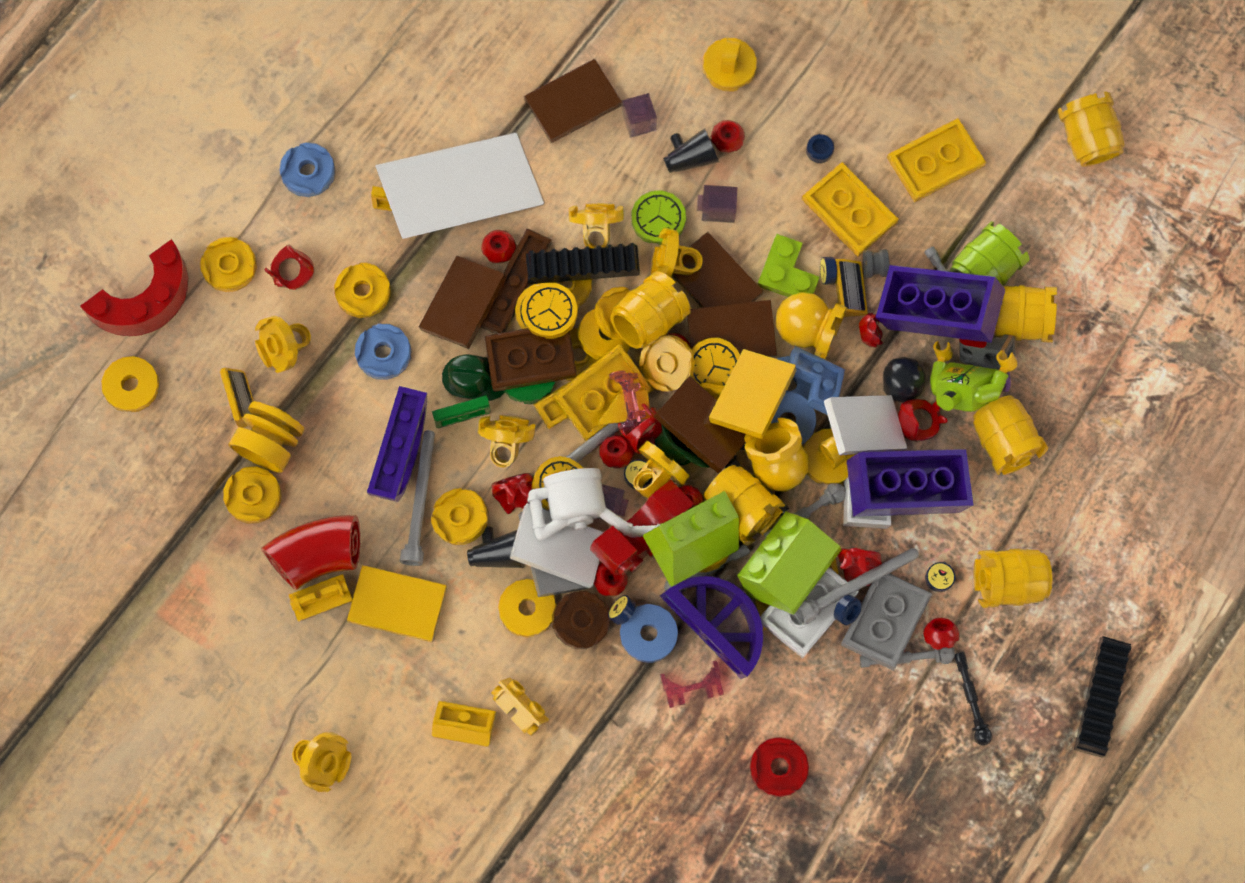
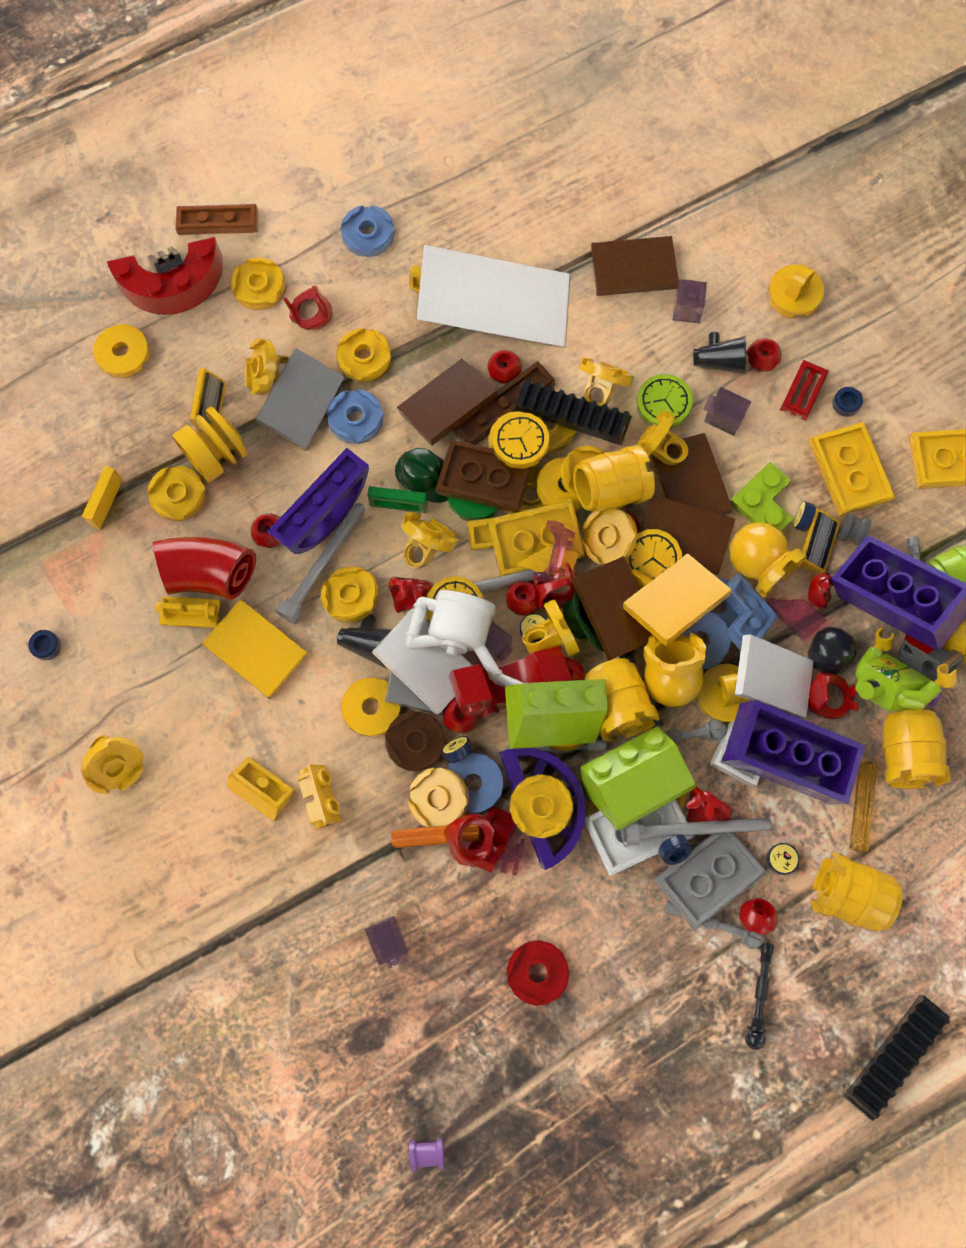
camera: 30 degrees right, 0 degrees up
(134, 275) = (163, 258): none -> black tile
(156, 218) = (217, 219): none -> dark orange tile
(186, 529) = (102, 497): none -> yellow tile
(200, 687) = (44, 645): none -> dark blue tile
(325, 357) = (299, 398): none -> light grey tile
(346, 495) = (259, 533): none -> red plate
(625, 659) = (438, 797): none -> yellow tile
(639, 691) = (430, 836): none -> orange axle
(641, 800) = (388, 942): none -> clear purple brick
(658, 685) = (453, 837): none -> red piece
(688, 672) = (504, 831): none -> red slope
(719, 623) = (541, 806): none -> yellow tile
(777, 175) = (796, 409): none -> red tile
(861, 361) = (798, 616): none -> clear pink tile
(987, 502) = (863, 806): none -> clear yellow axle

